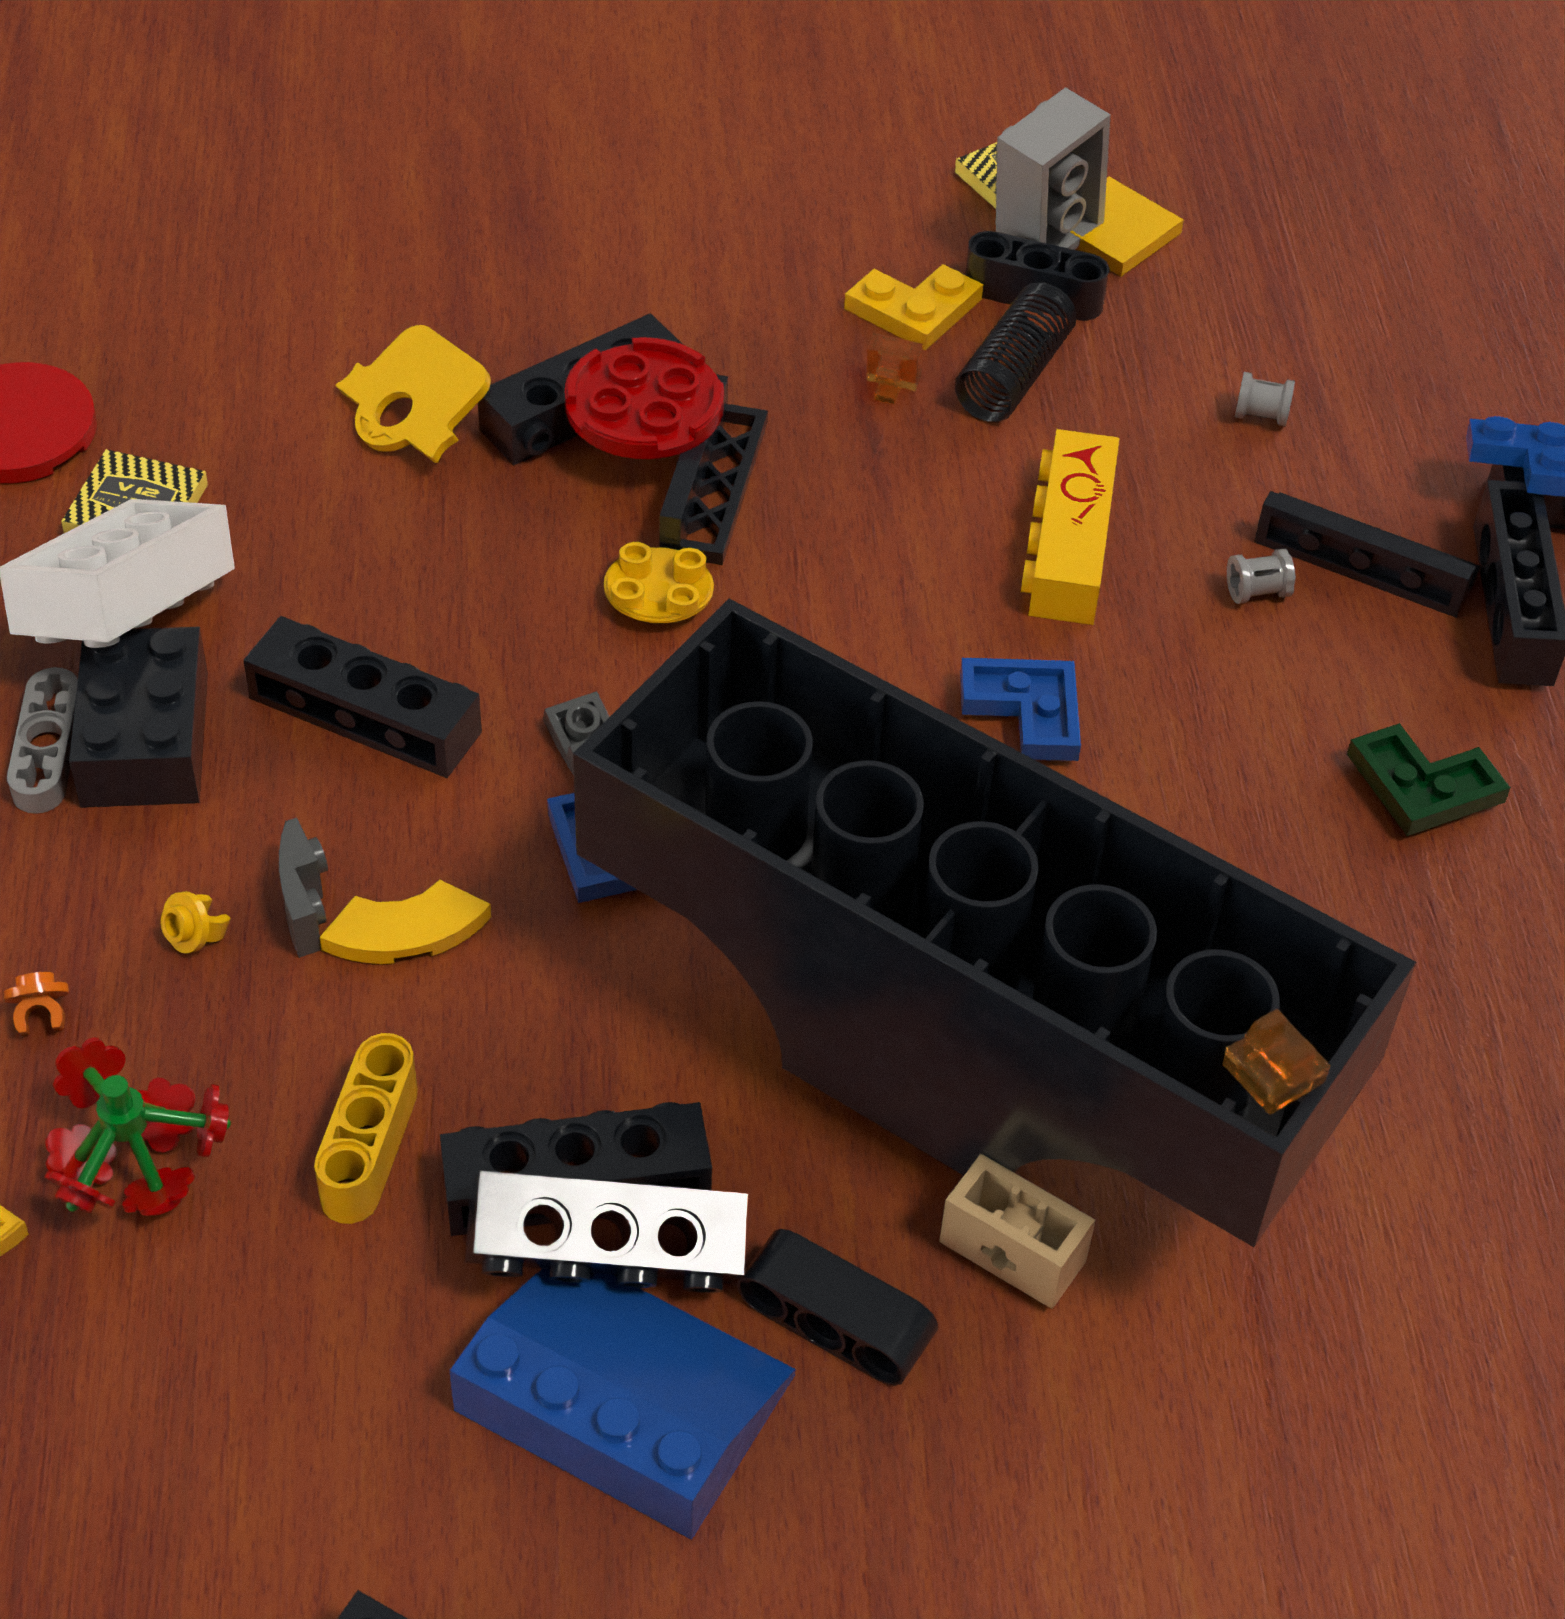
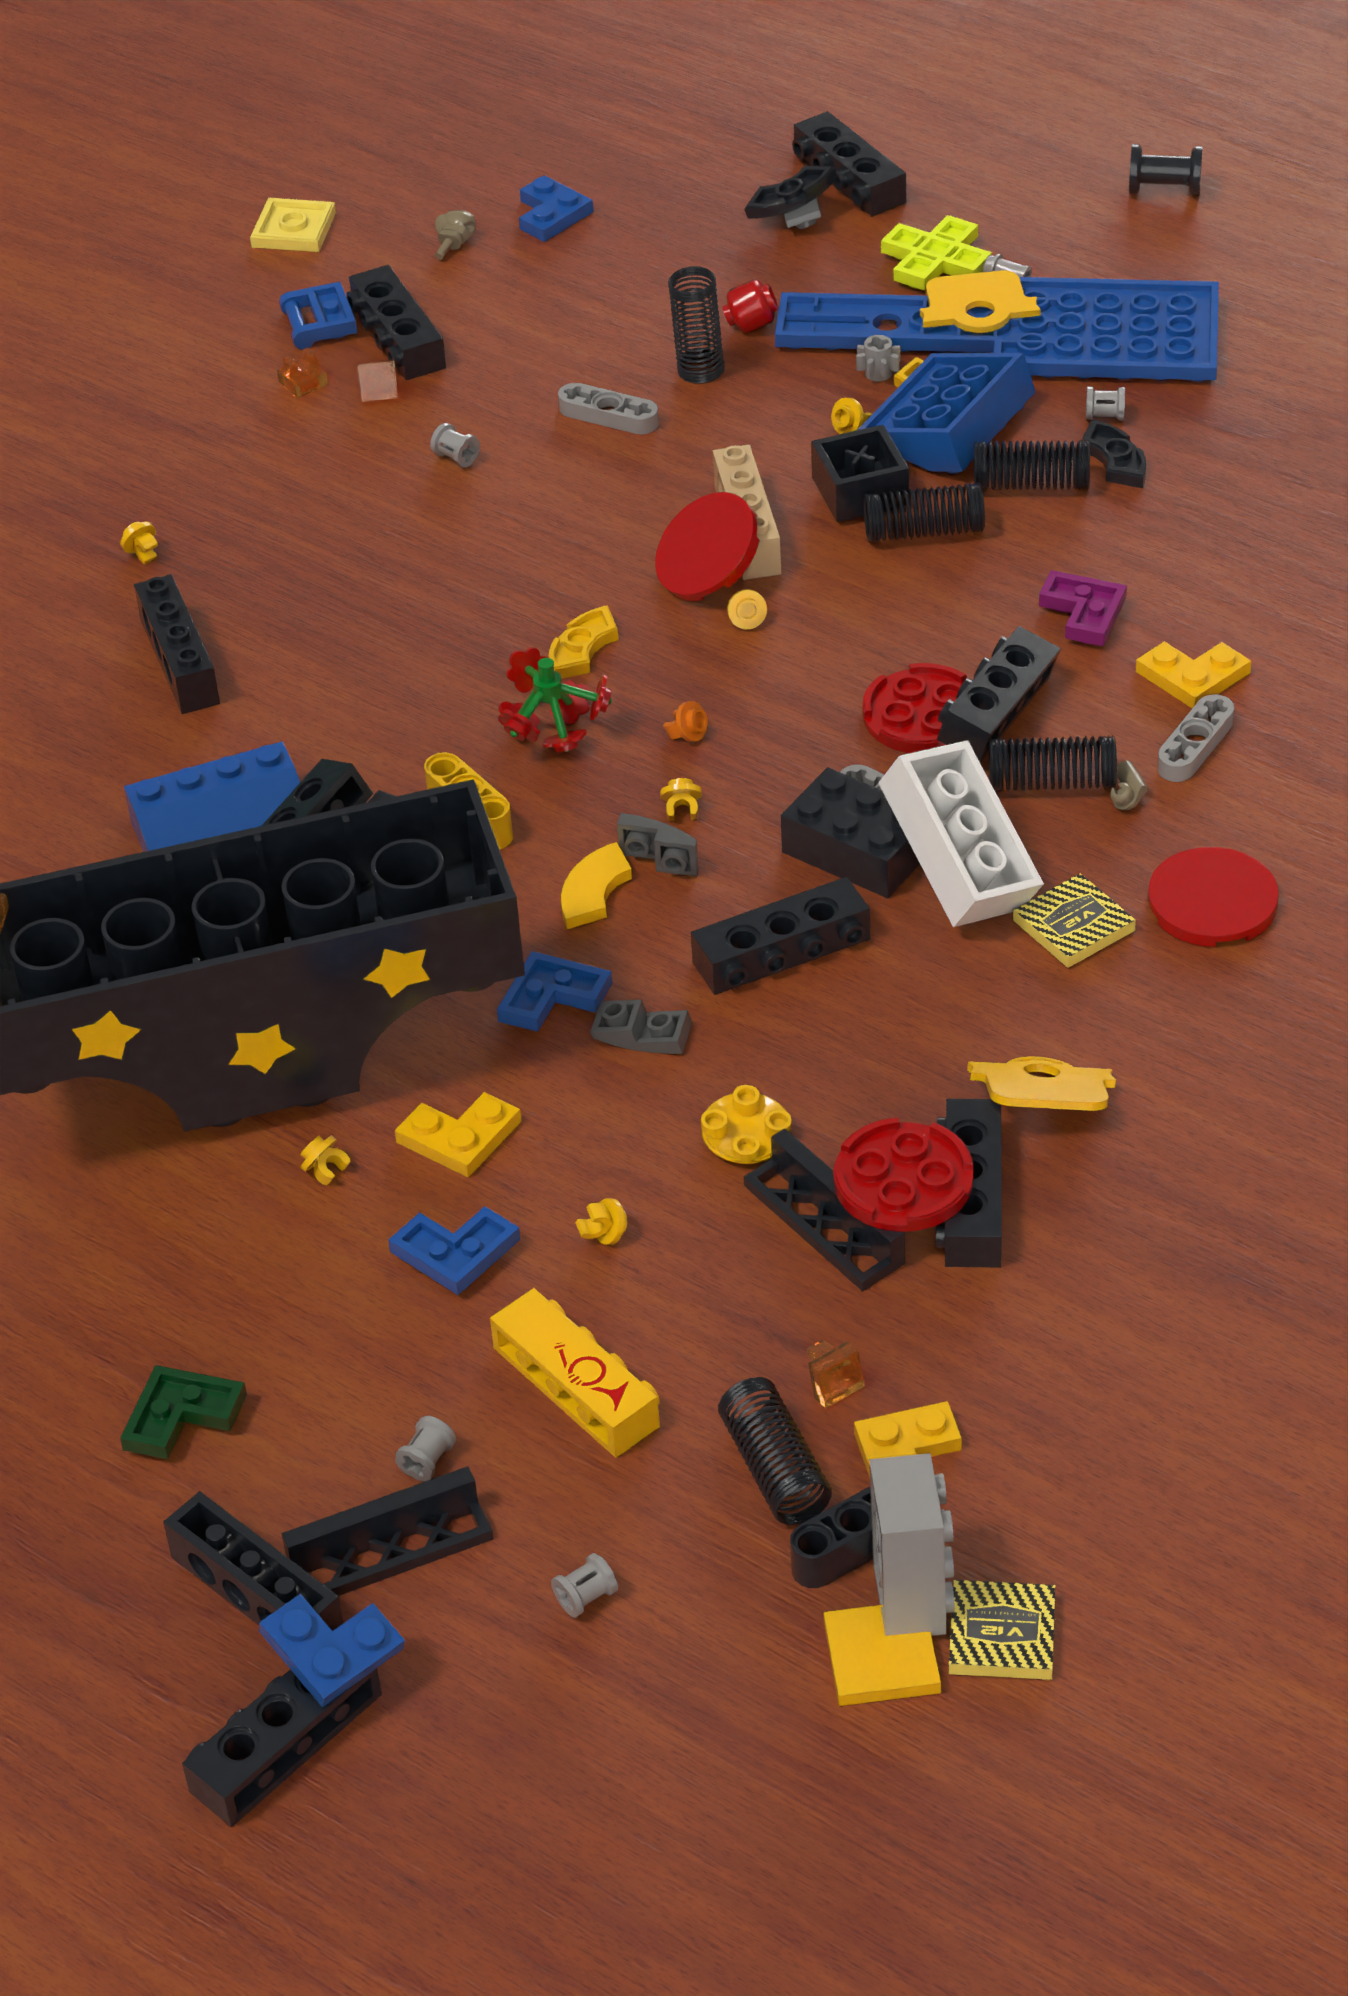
camera: 135 degrees right, 5 degrees down
(879, 610) = (606, 1222): none -> yellow plate

